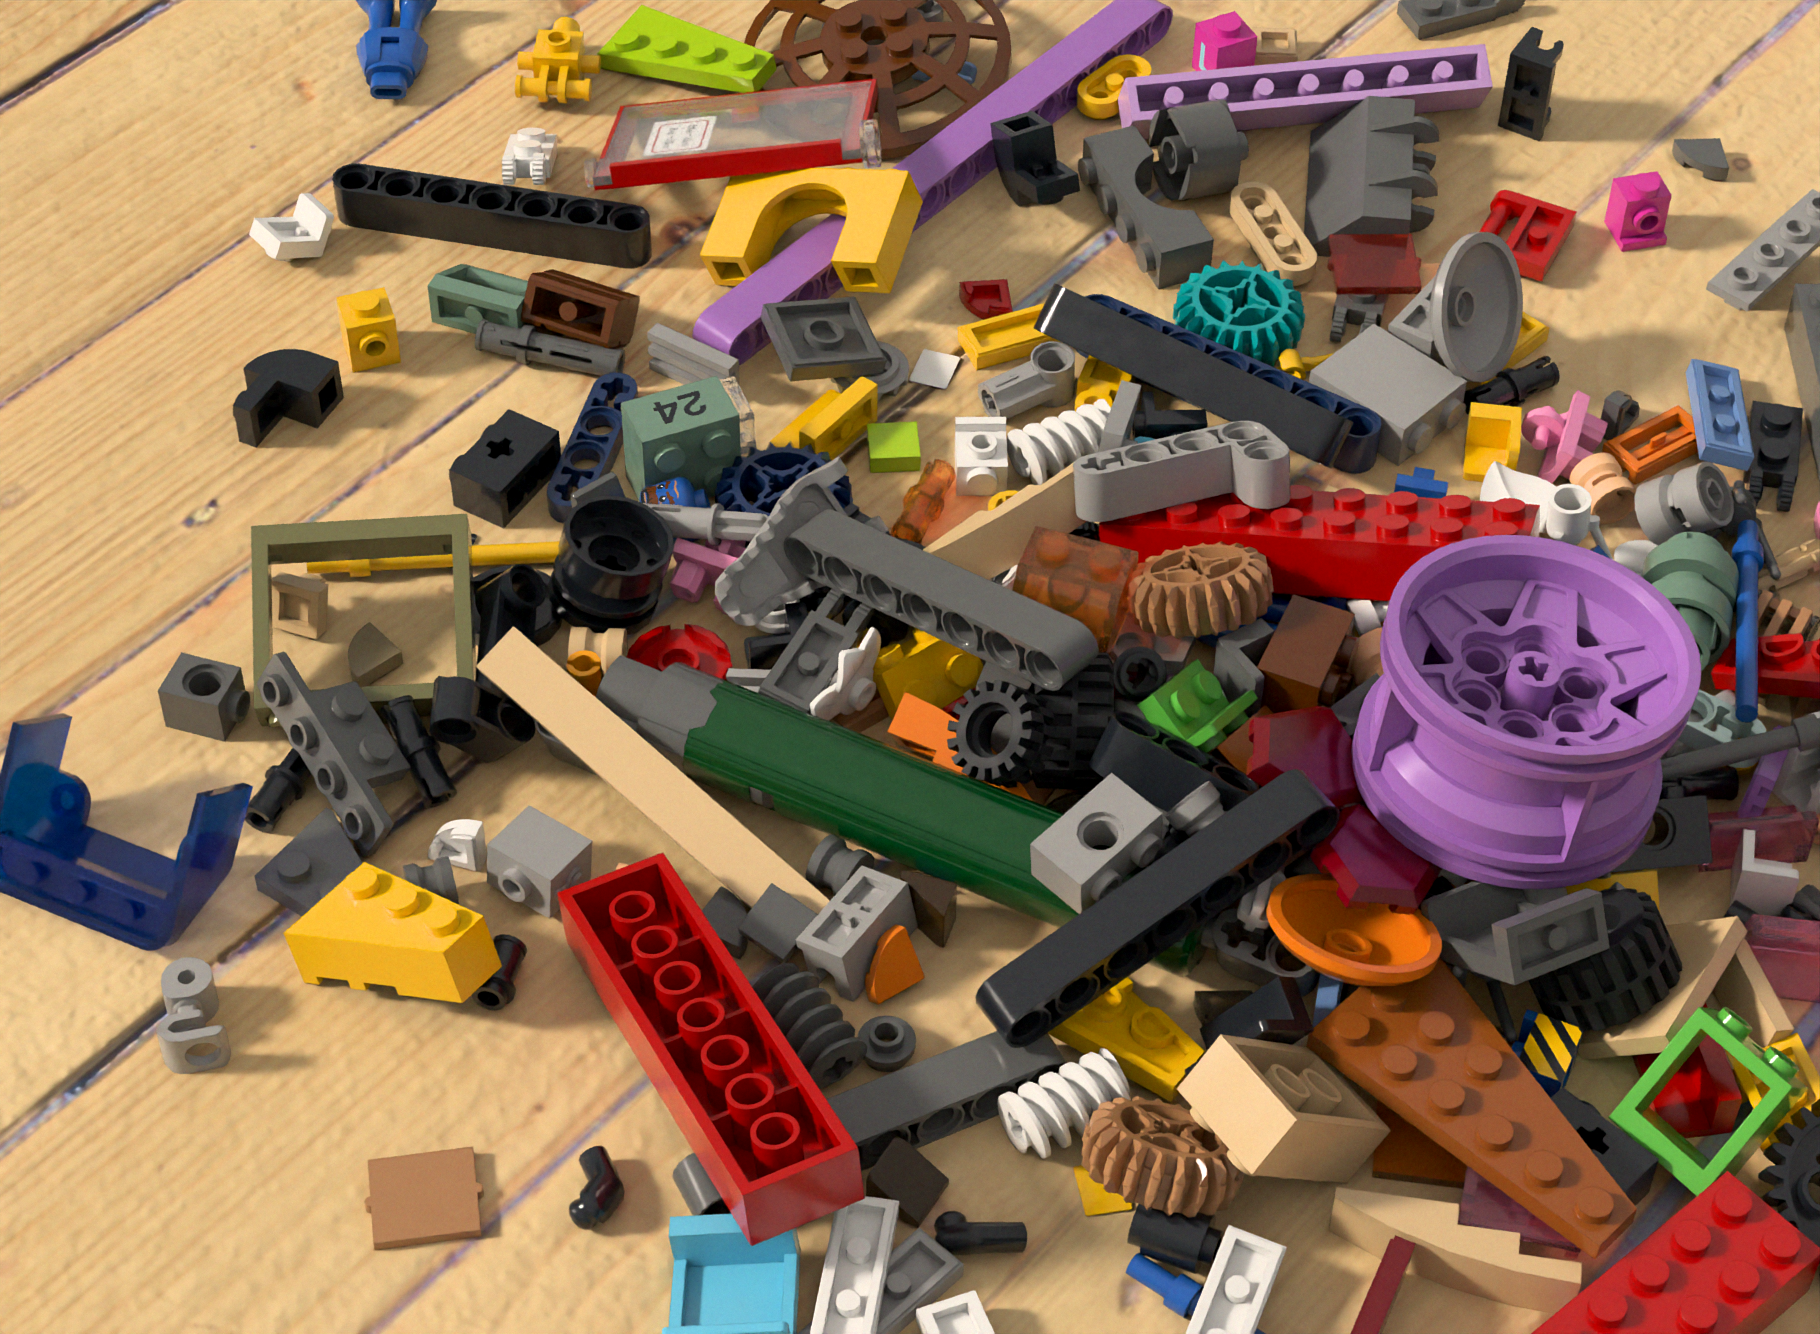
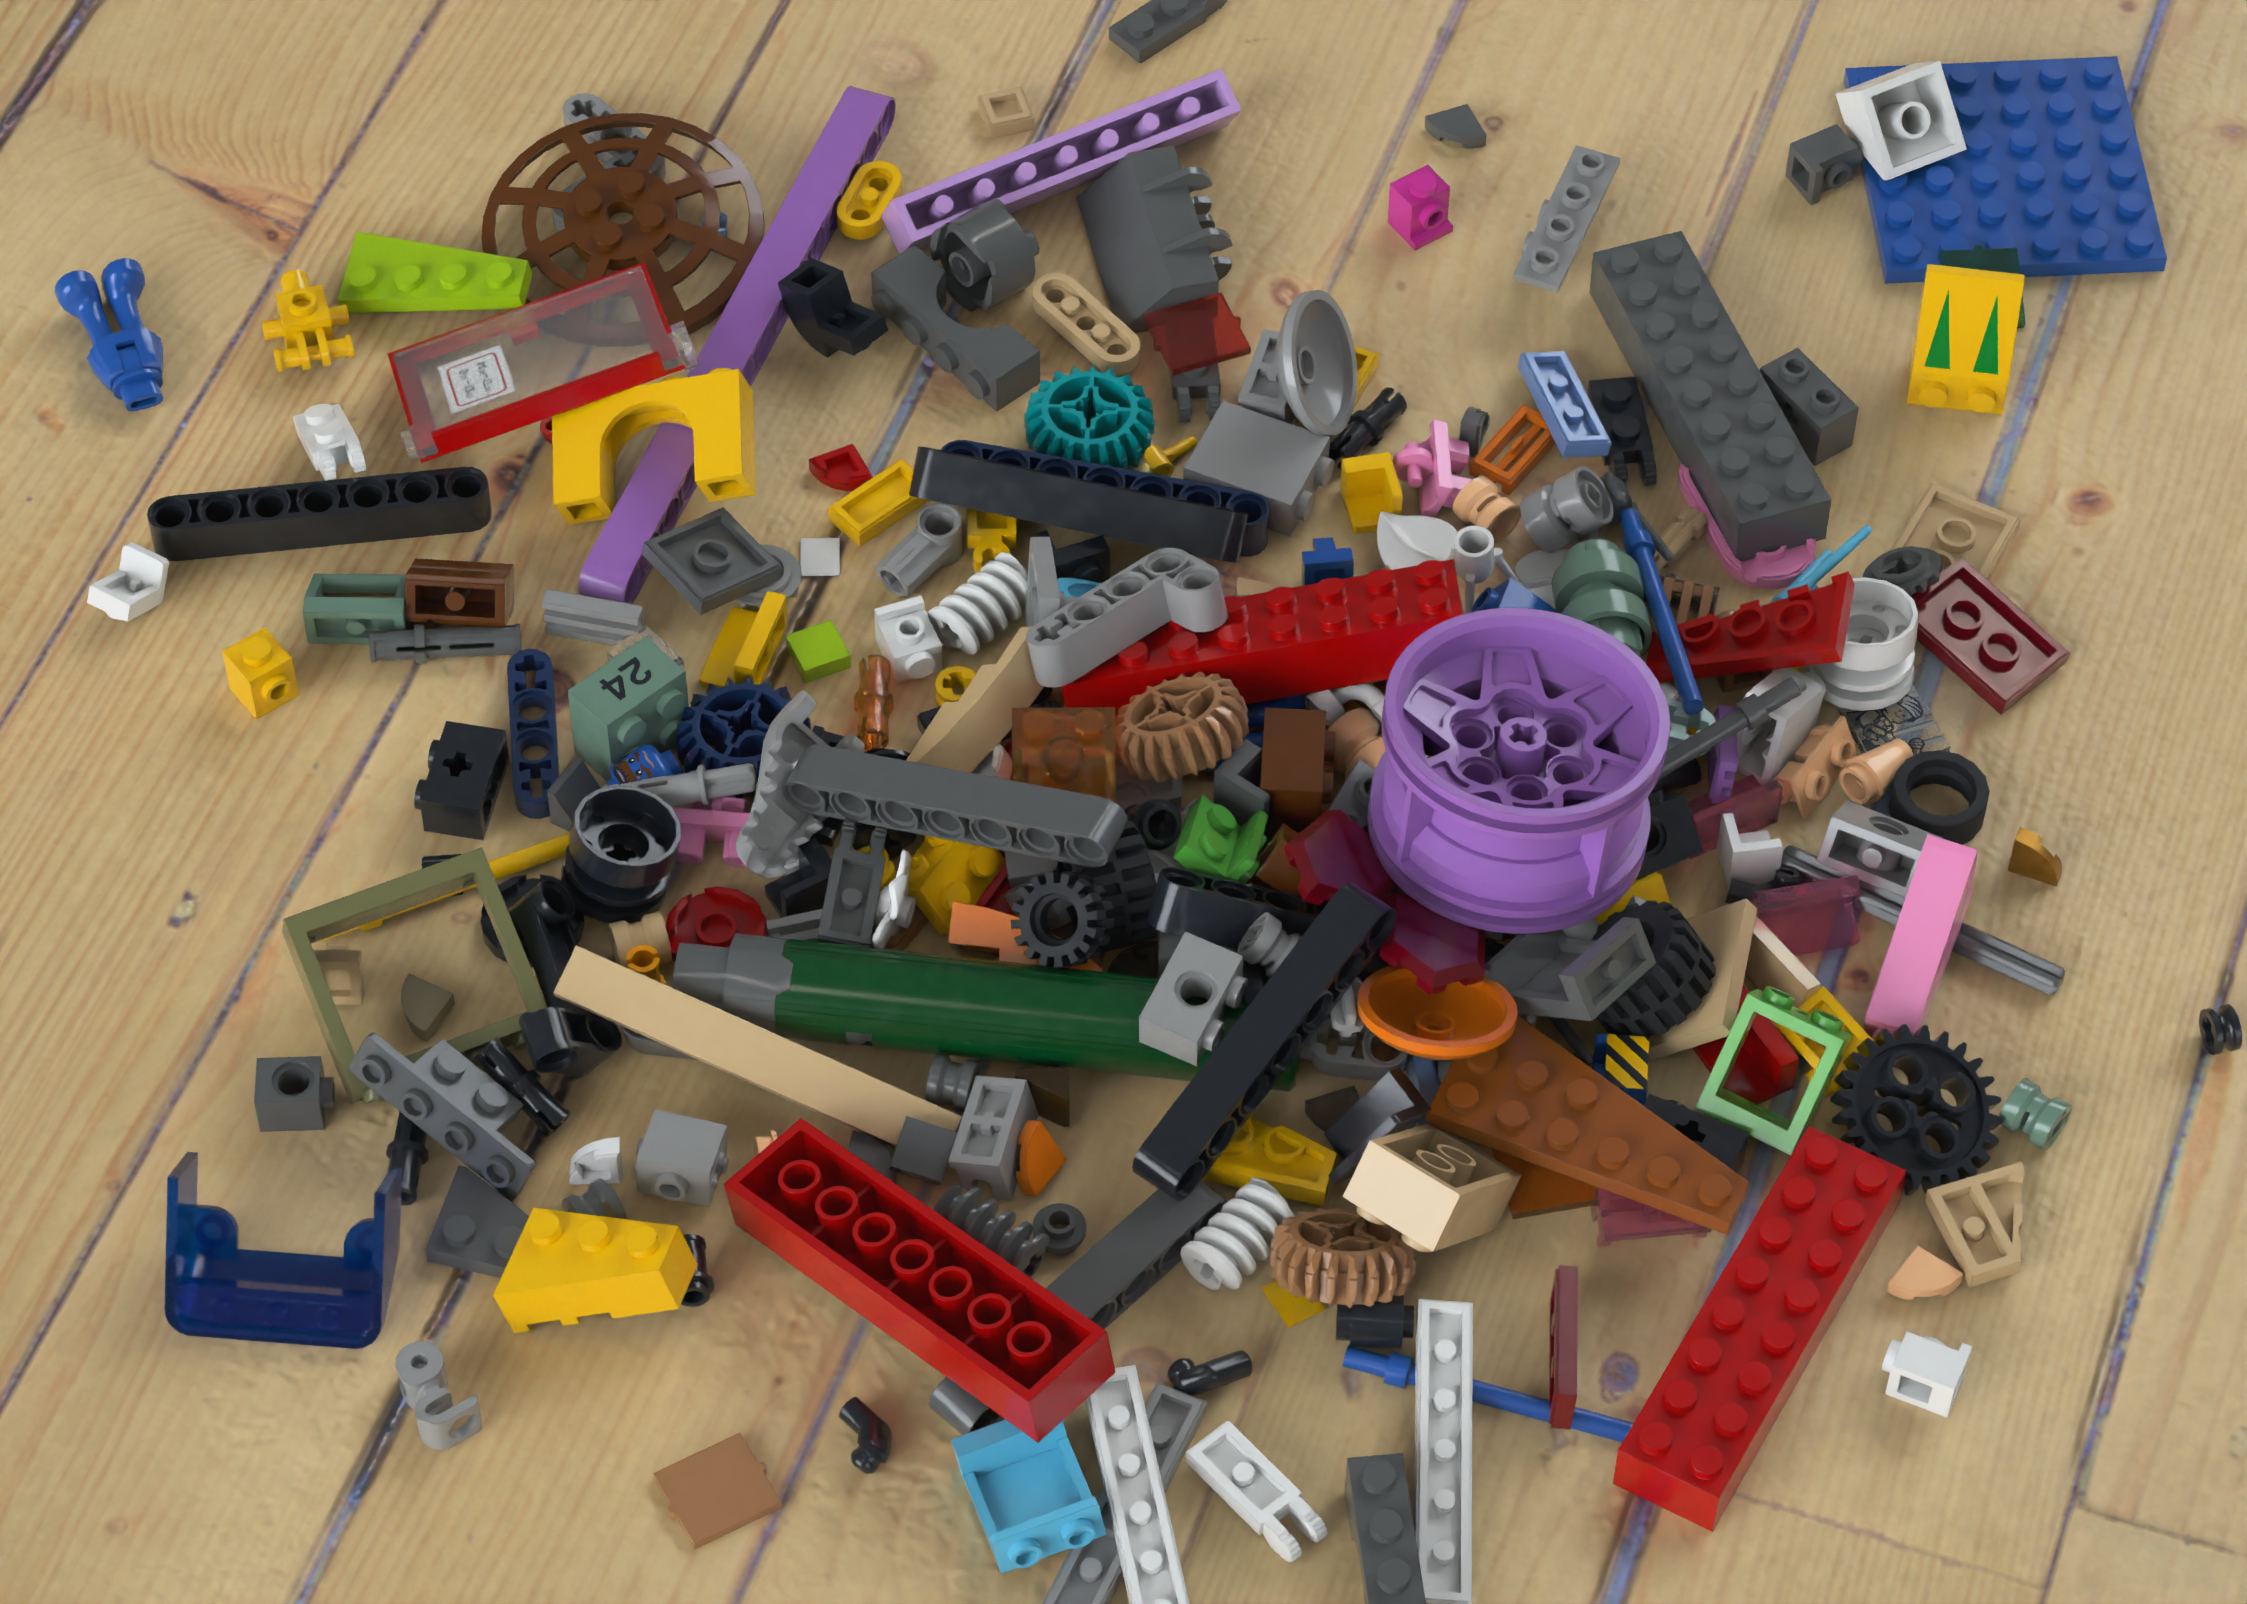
camera: 20 degrees left, 5 degrees up
(289, 386) = (208, 754): black brick -> none
(908, 1178) = (1133, 1343): dark brown slope -> none
(1223, 43) = (963, 132): dark pink brick -> none
(1453, 1254) = (1607, 1266): tan slope -> none
(1529, 86) = (1276, 99): black hinge -> none
(1537, 233) = (1332, 263): red plate -> none

